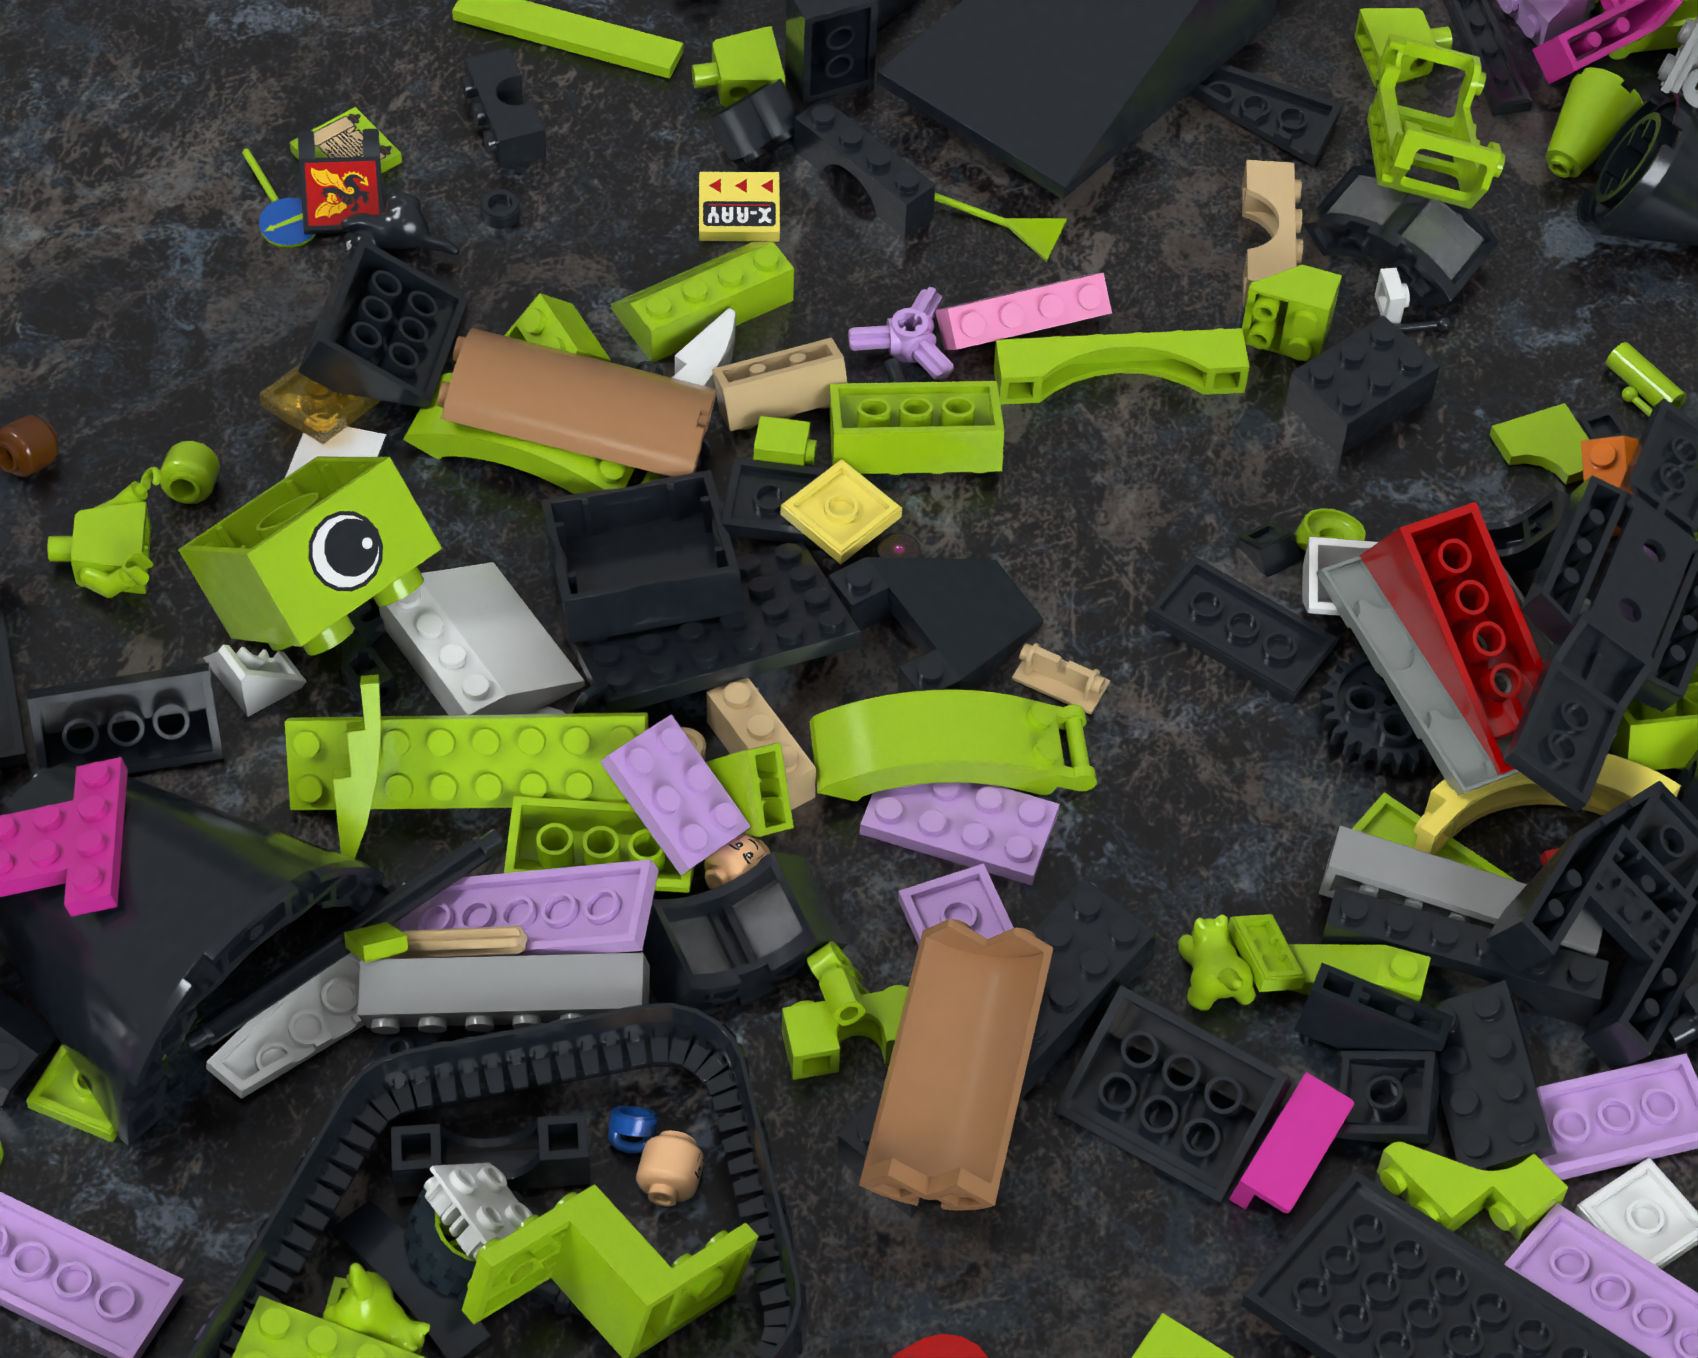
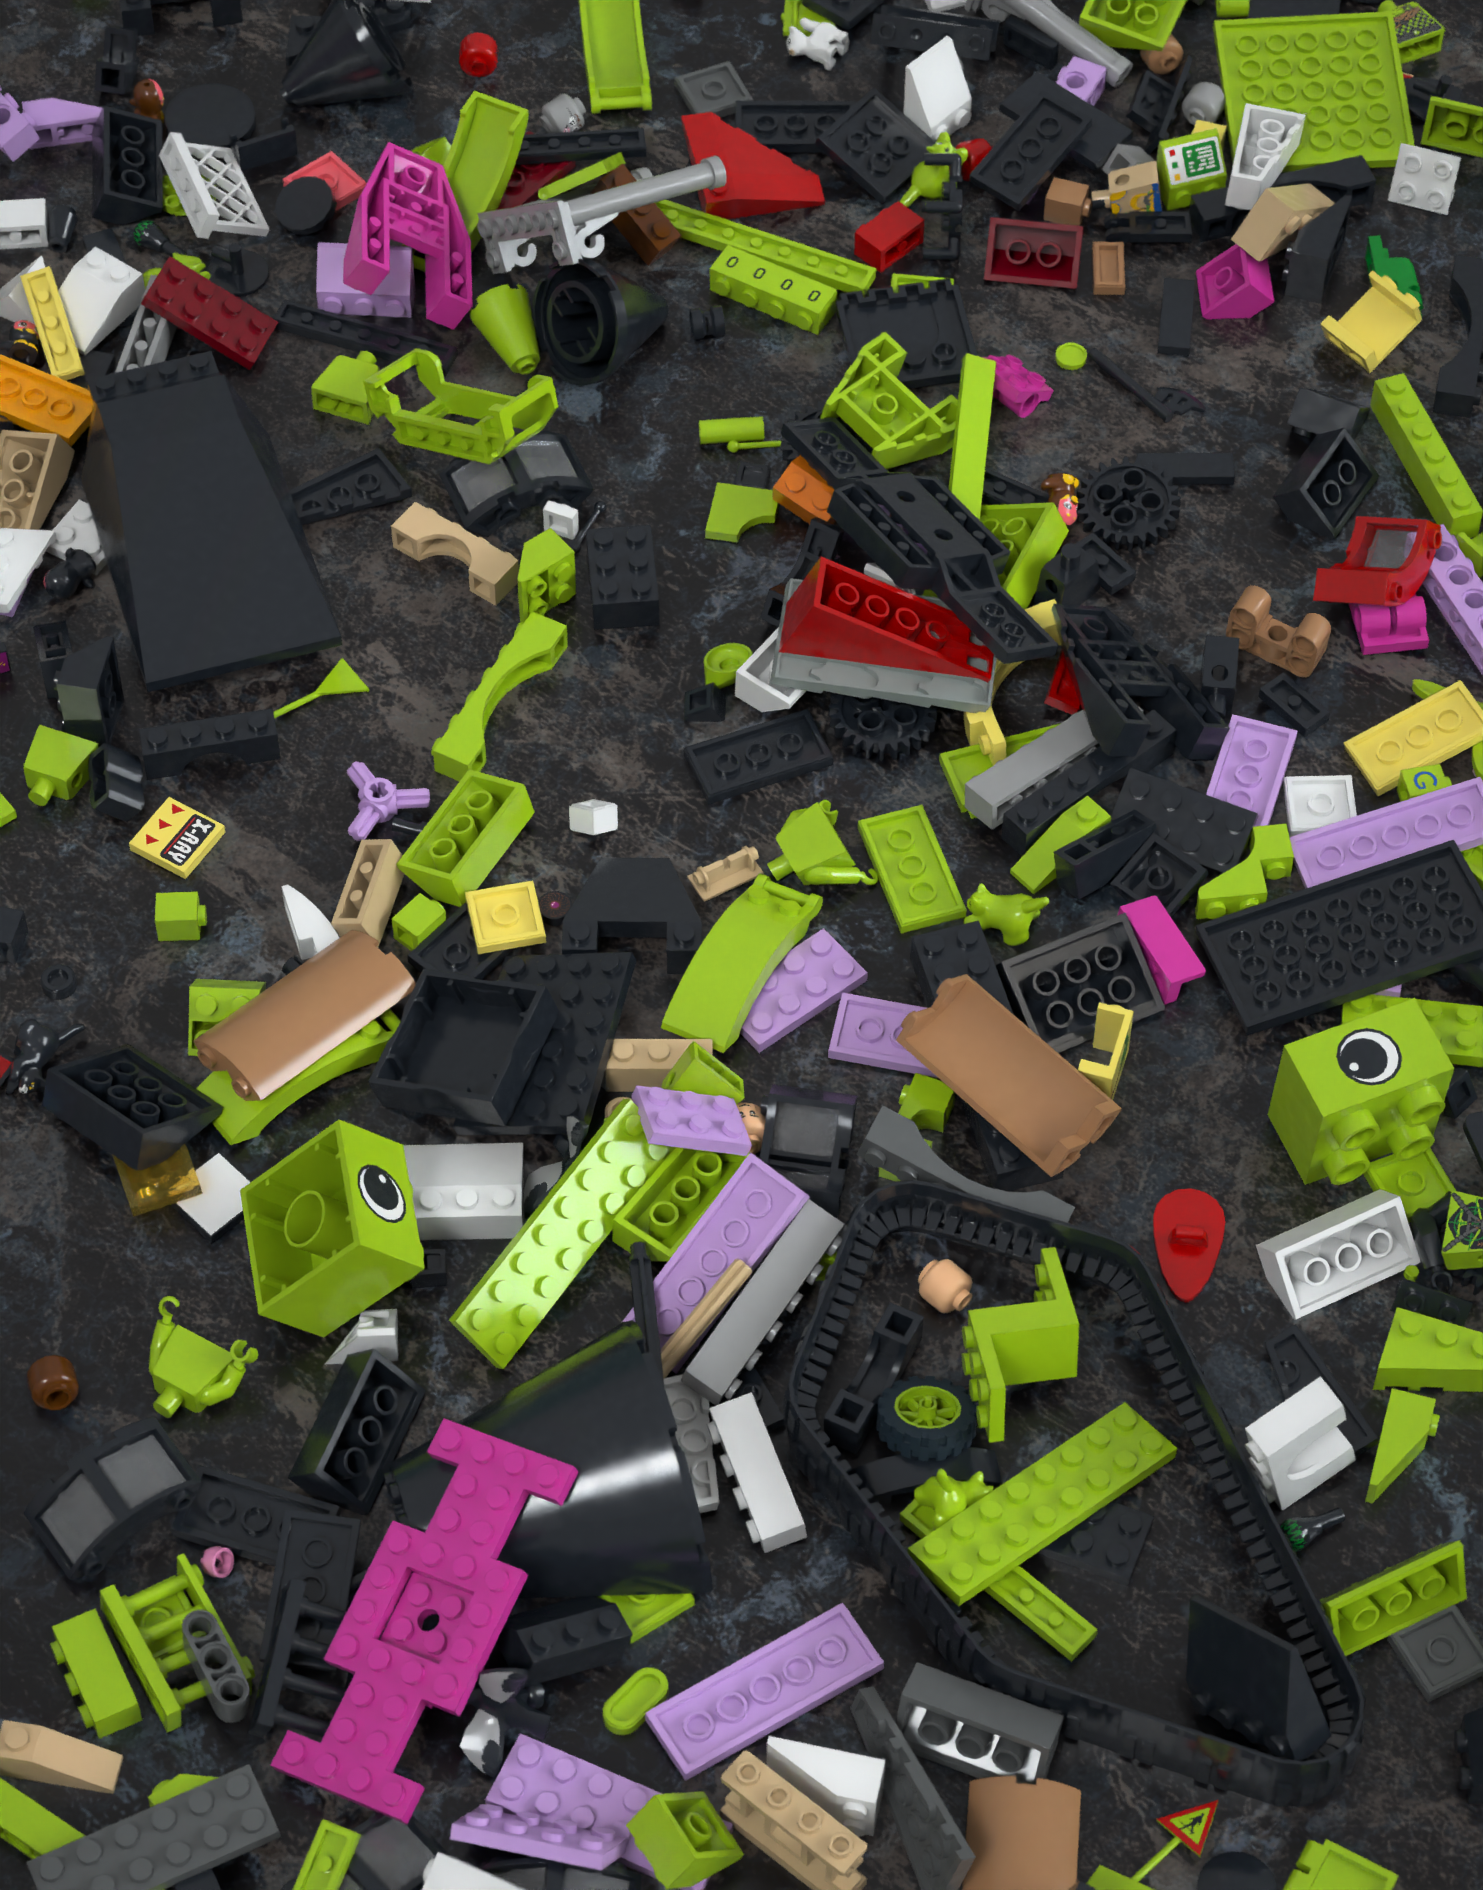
camera: 55 degrees left, 0 degrees up
(189, 472) = (158, 1282): lime head -> none
(291, 1108) = (757, 1472): none -> white brick
(356, 785) = (539, 1302): lime slope -> none
(376, 942) = (676, 1354): lime tile -> none
(475, 1203) = (937, 1386): white hinge -> none
(631, 1122) = (898, 1288): blue tile -> none
(640, 253) = (179, 916): none -> lime brick
(681, 307) = (245, 899): lime slope -> none
(815, 1200) = (901, 1150): none -> dark grey arch
(839, 983) = (867, 1111): lime bar -> none
(1023, 311) = (416, 723): bright pink brick -> none
(1039, 525) = (593, 817): none -> white slope
(1080, 1181) = (1111, 1035): none -> light yellow panel
(1152, 738) = (816, 850): none -> lime torso
(1211, 848) = (911, 869): none -> lime tile
(1266, 952) = (1015, 880): lime plate -> none

